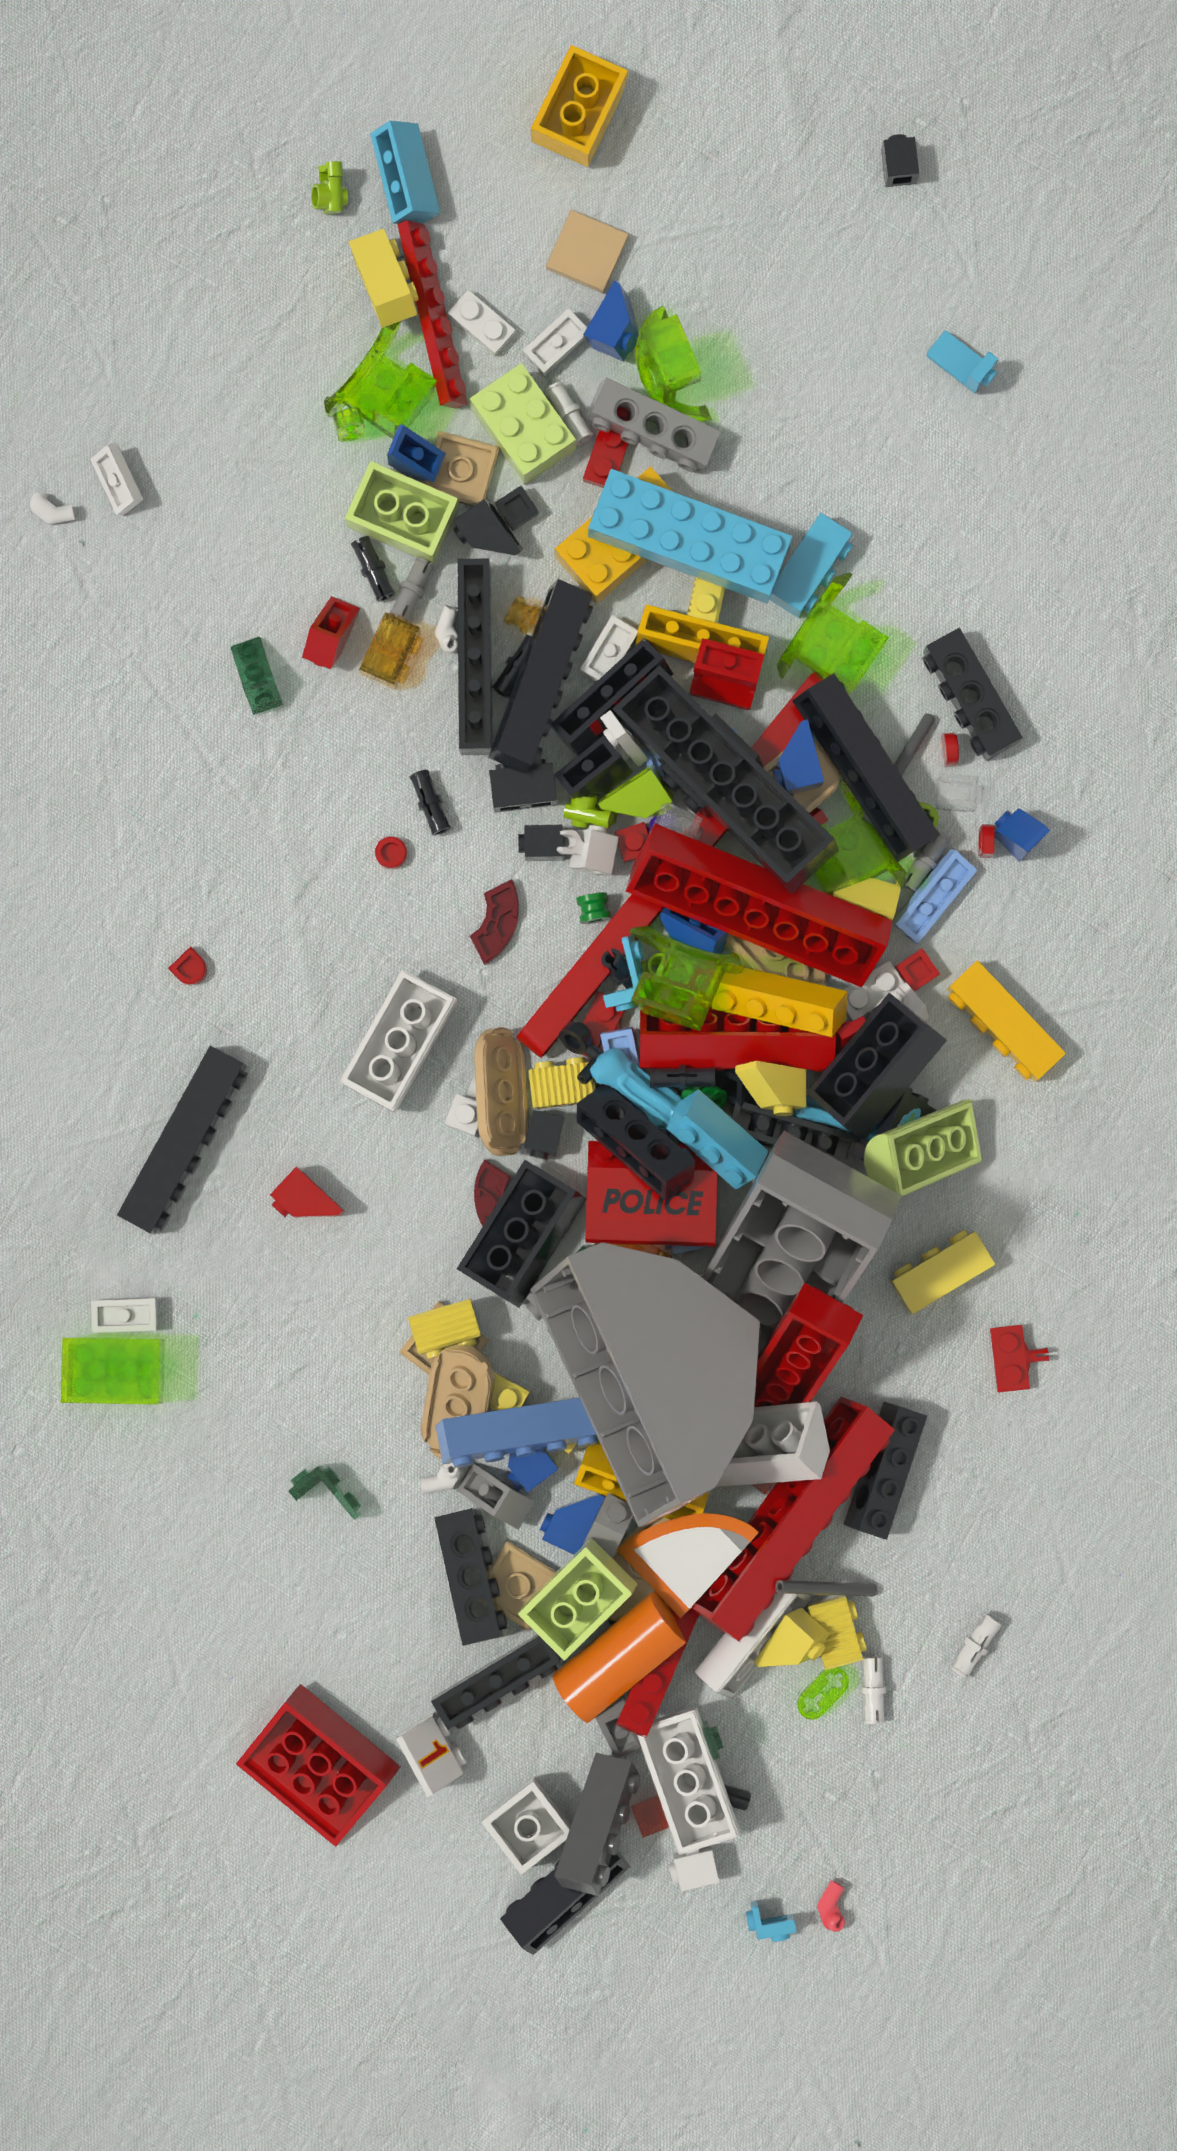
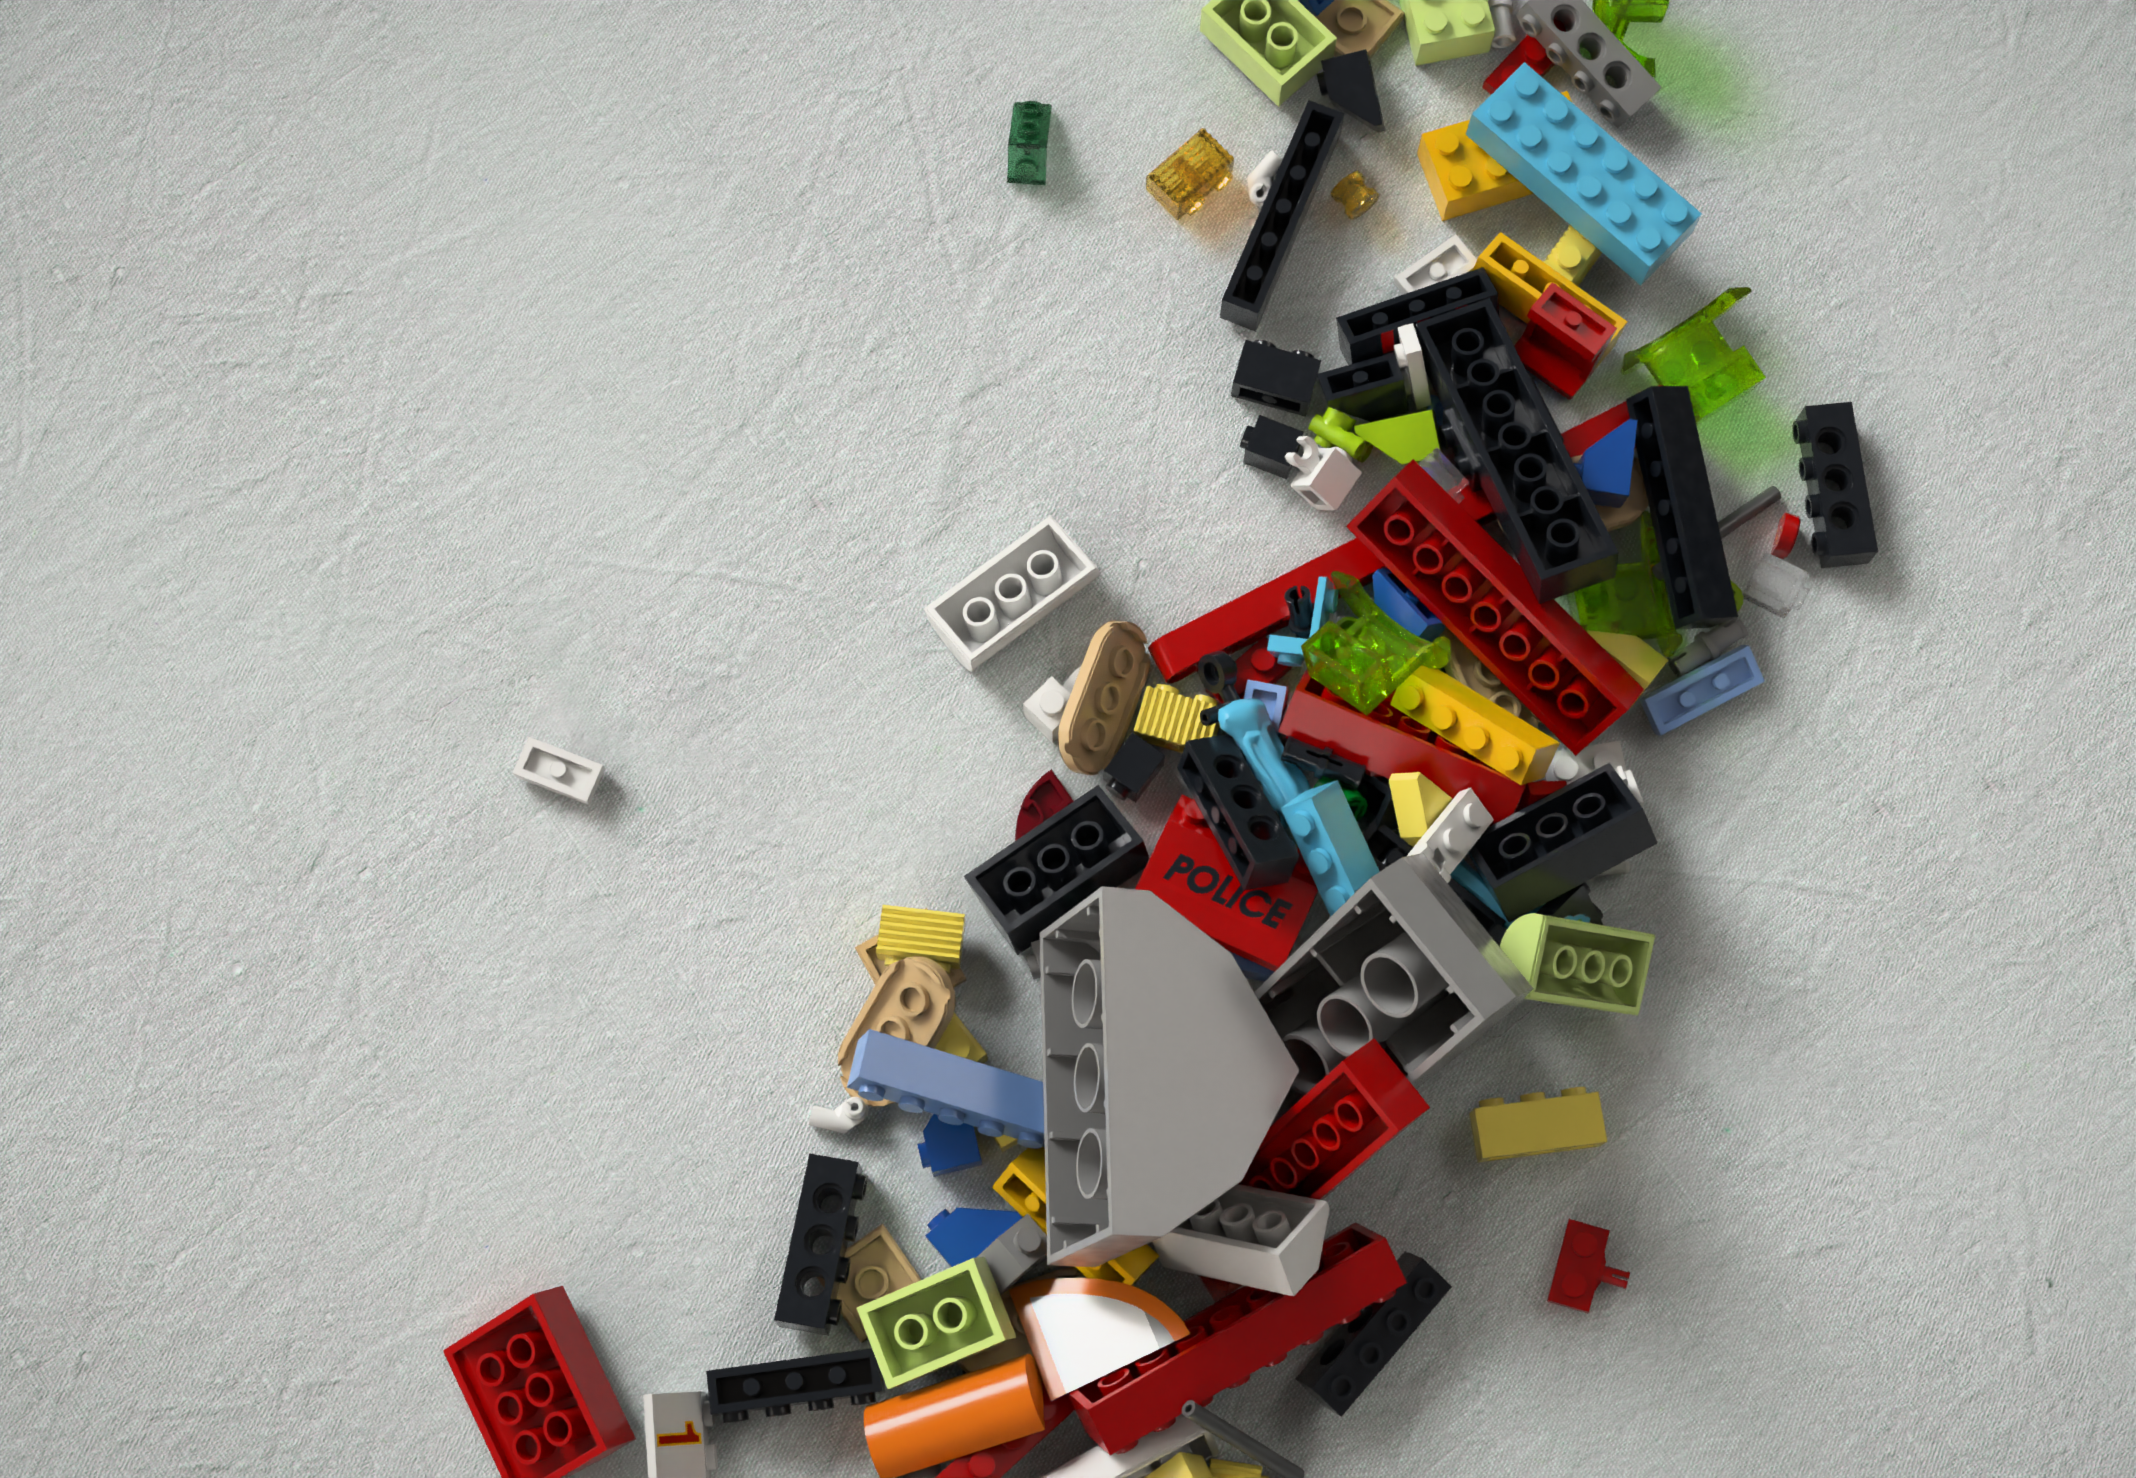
camera: 20 degrees right, 10 degrees down
(112, 1370) = (515, 824): clear neon green brick -> none
(182, 1141) = (716, 603): black brick -> none
(189, 968) = (811, 421): red tile -> none
(303, 1198) = (824, 725): red slope -> none
(306, 1481) = (681, 1050): clear green bracket -> none
(330, 632) = (1130, 129): red slope -> none
(373, 568) = (1208, 83): black pin -> none
(391, 852) = (1094, 390): red tile -> none
(412, 588) = (1244, 118): light grey pin -> none
(430, 802) = (1163, 352): black pin -> none
(495, 1496) = (893, 1163): light grey slope -> none
(499, 923) = (1183, 516): dark red tile -> none
(506, 681) = (1325, 248): black pin -> none
(516, 508) = (1396, 82): black plate -> none
(541, 675) = (1347, 262): black brick -> none
(593, 908) = (1299, 541): green wheel -> none
(631, 841) = (1370, 484): red plate -> none
(797, 1098) = (1454, 832): none -> white plate
(811, 566) = (1704, 272): medium azure brick -> none
(917, 970) = (1649, 764): red plate -> none
(963, 362) = (1966, 129): medium azure bracket -> none
(986, 841) = (1787, 654): red tile -> none
(1005, 1022) = (1729, 866): yellow brick -> none
(1019, 832) = (1832, 659): blue slope -> none

